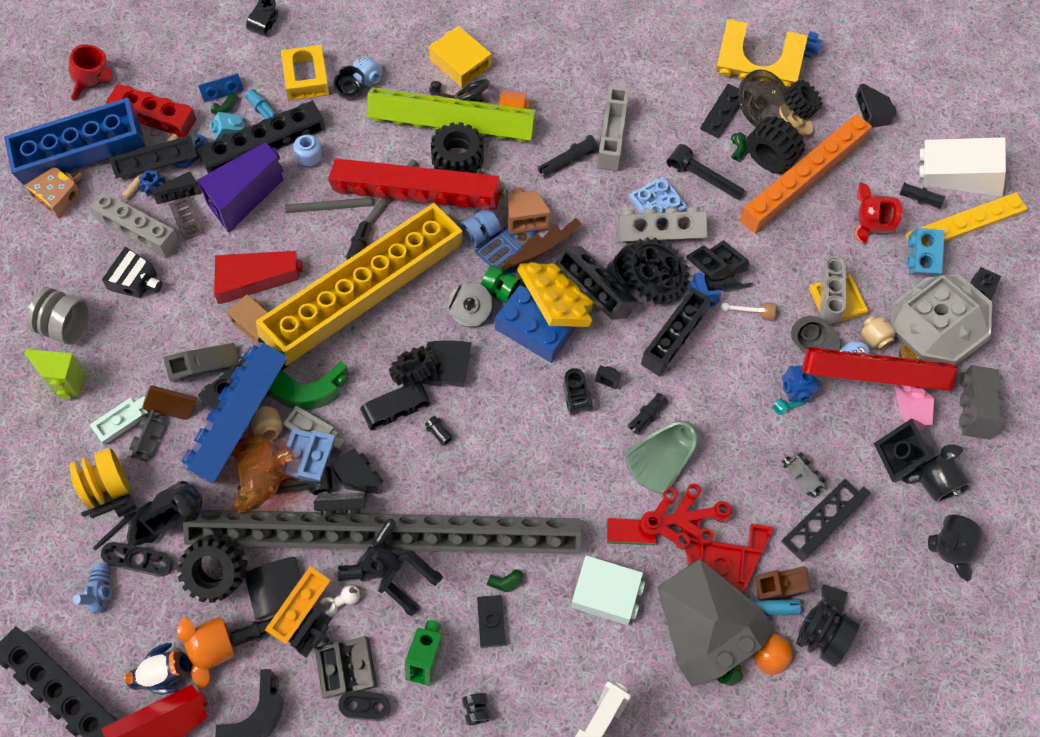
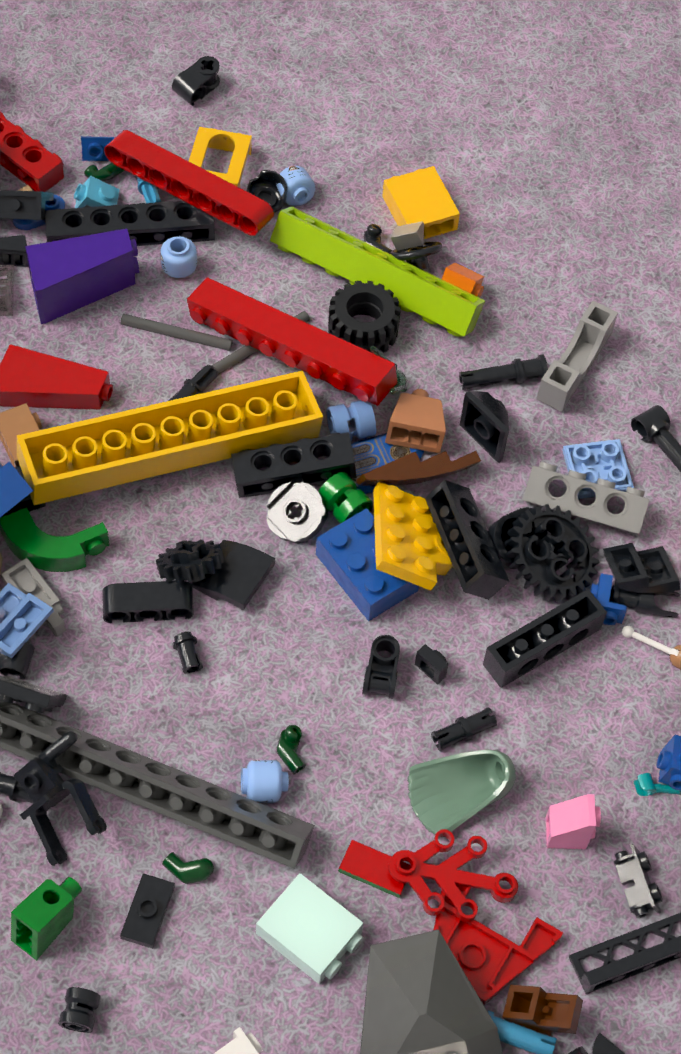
camera: 20 degrees right, 5 degrees down
(292, 93) = (189, 182): none -> red beam
(355, 474) = (60, 666): black slope -> none
(440, 270) = (310, 469): none -> black brick
(464, 81) = (408, 235): none -> light grey slope
(531, 501) = (264, 781): none -> light blue head
(536, 471) = (288, 746): none -> dark green arm
(573, 196) = (486, 422): none -> black slope
(748, 450) = (572, 823): none -> bright pink slope

